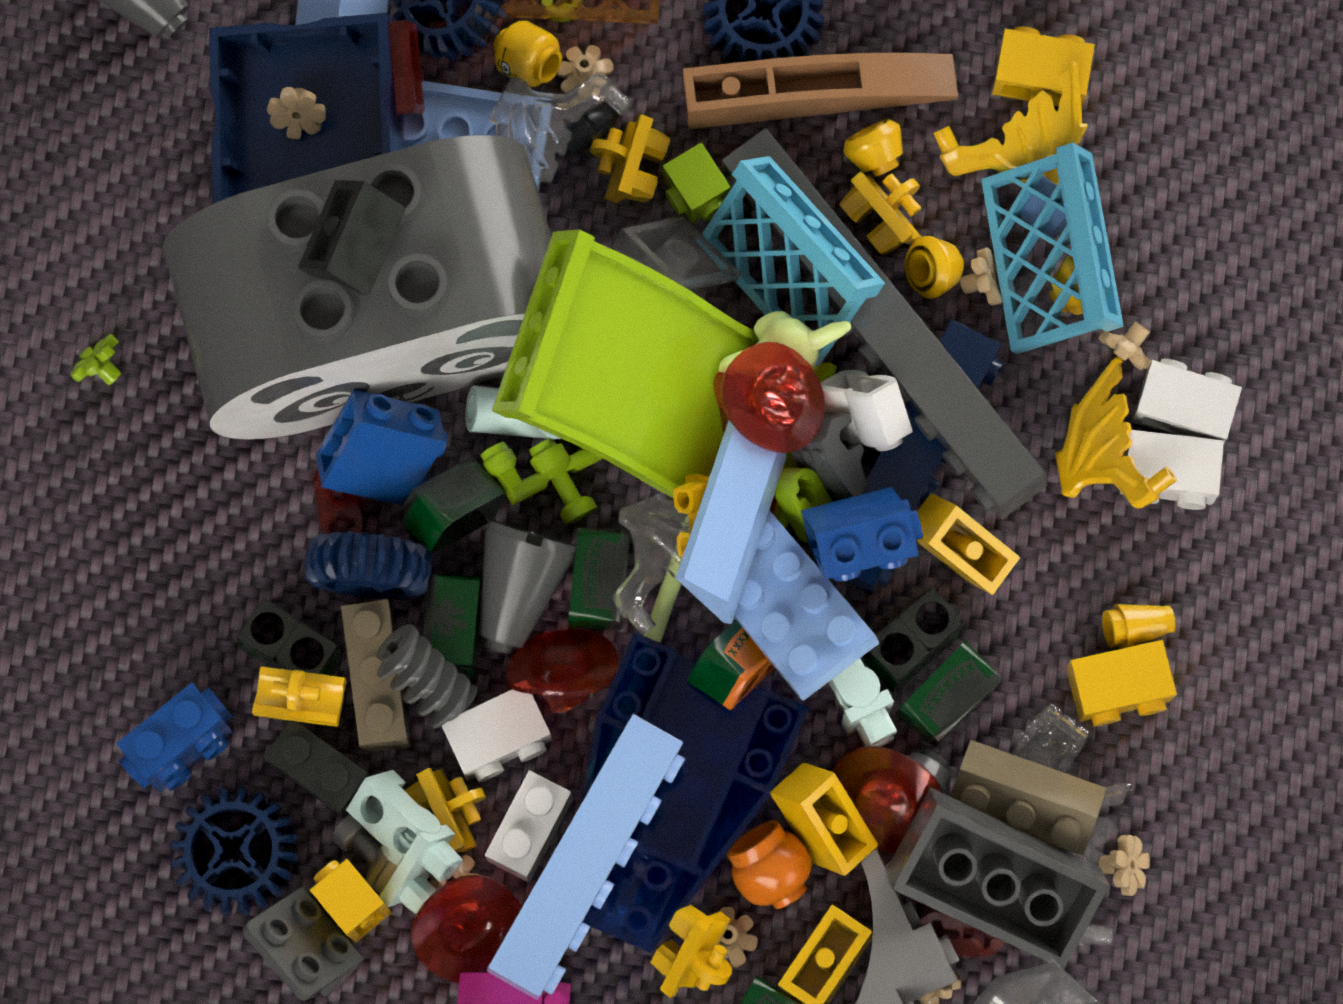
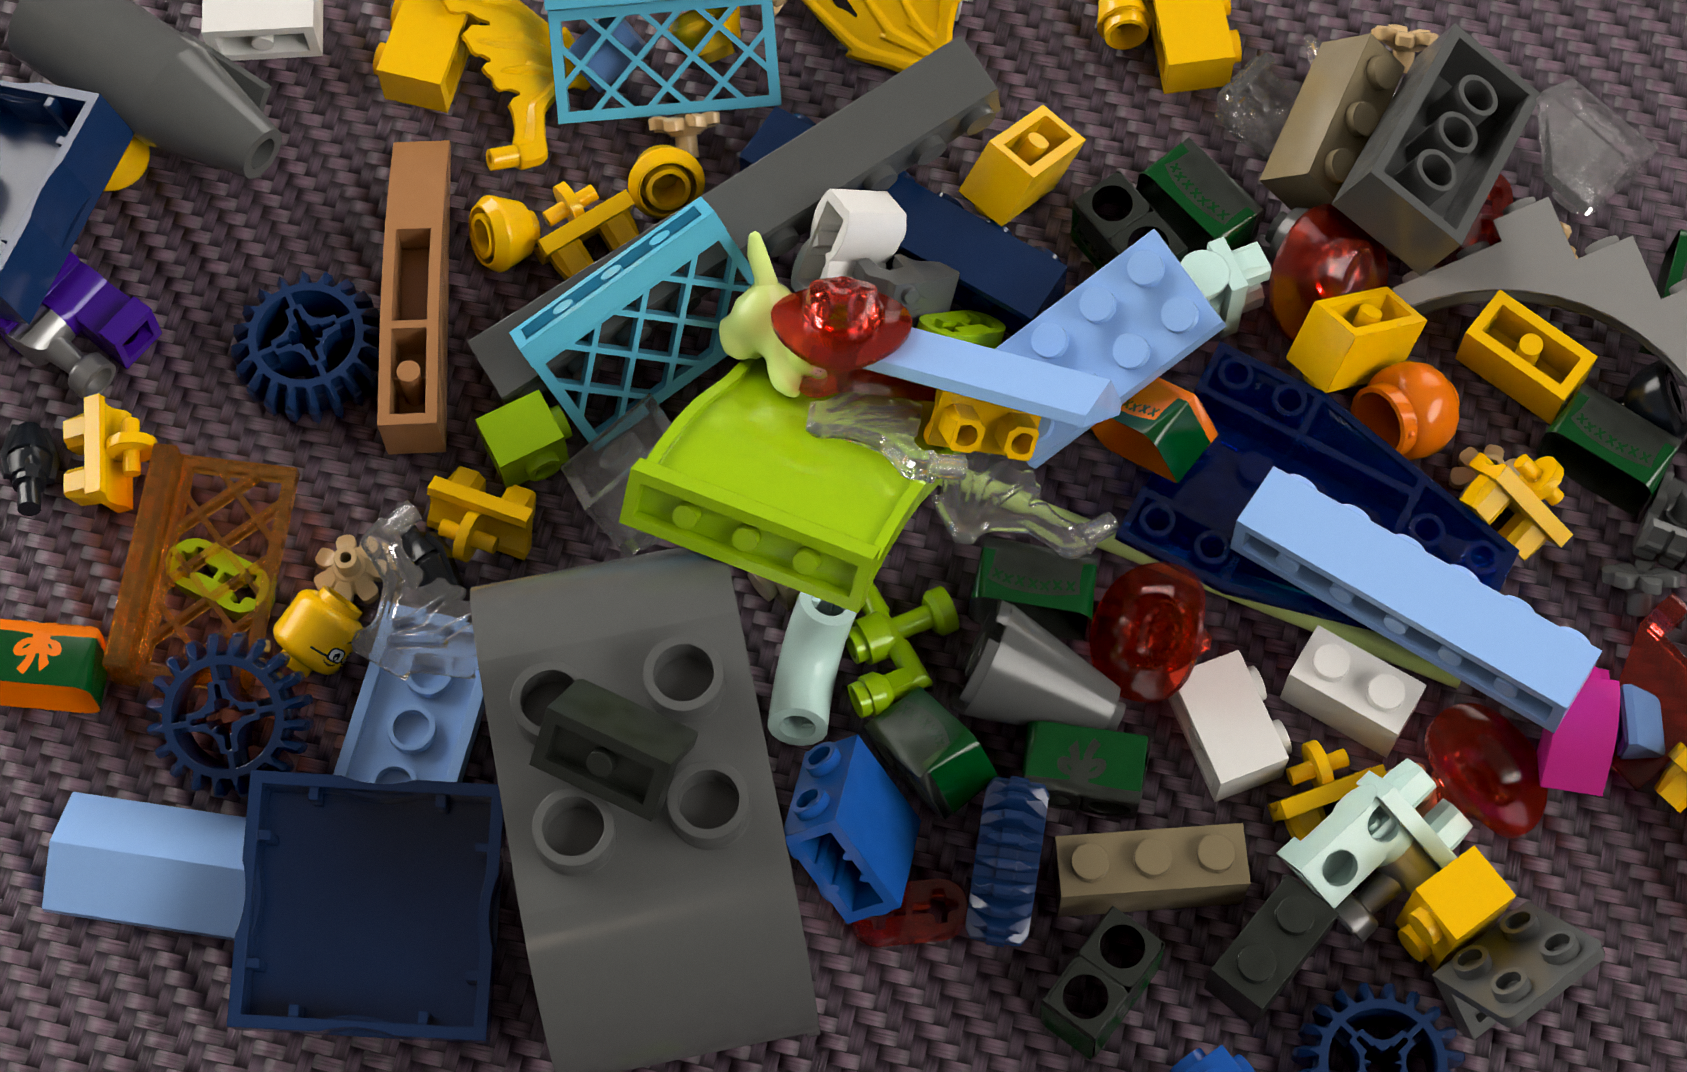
camera: 85 degrees left, 10 degrees down
(296, 111) = (363, 919): tan plant -> none
(299, 696) = (1184, 955): yellow hips -> none
(406, 68) = (353, 765): clear red tile -> none
(425, 676) = (1166, 789): dark grey piece -> none
(688, 425) = (885, 427): none -> clear animal
(862, 534) = (1016, 249): blue brick -> none

